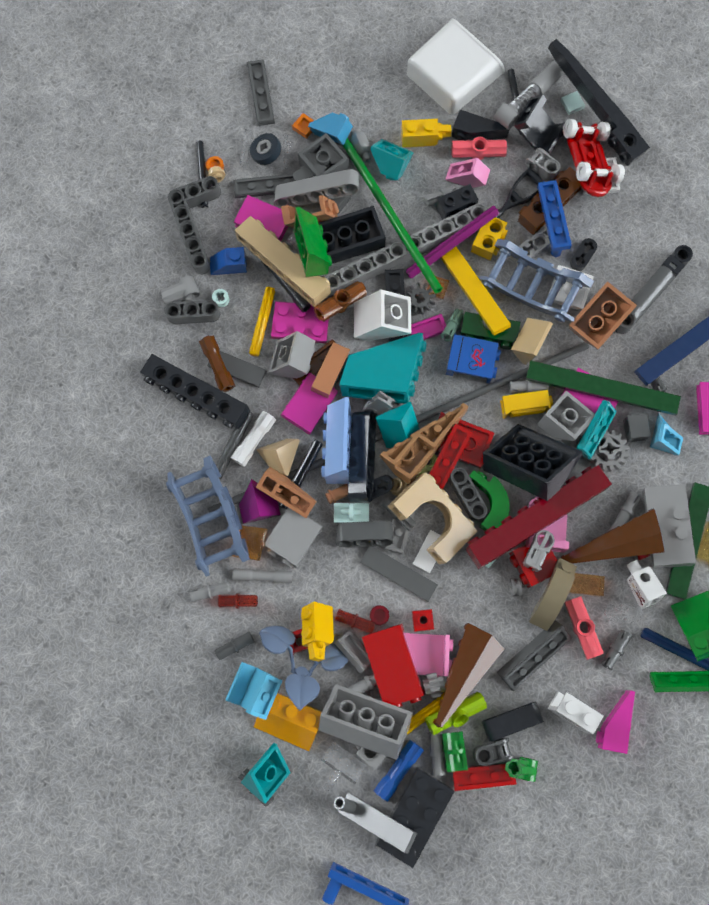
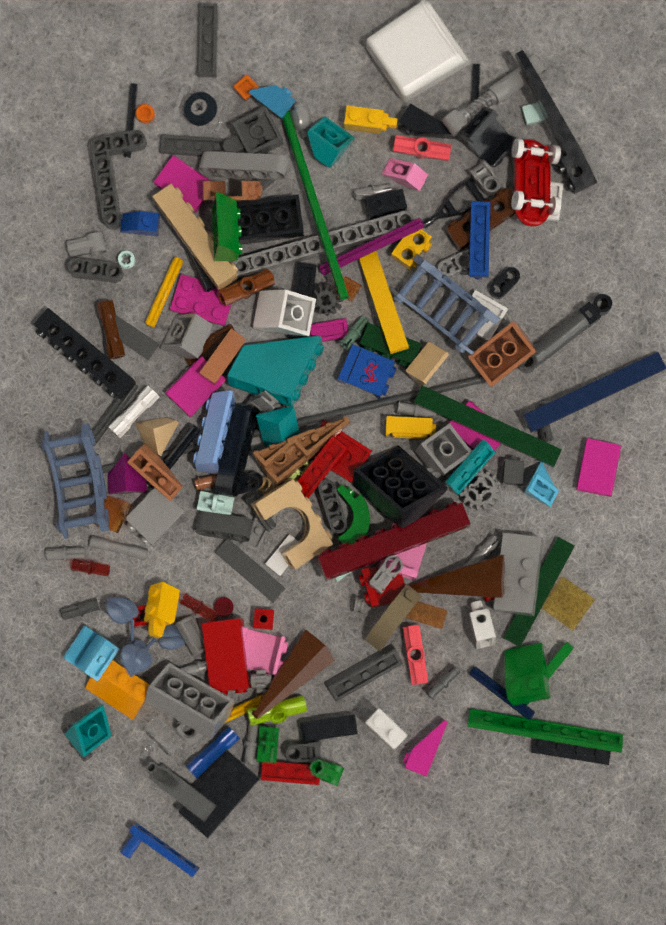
camera: 10 degrees right, 5 degrees up
(216, 172) = (145, 125): tan plate -> none

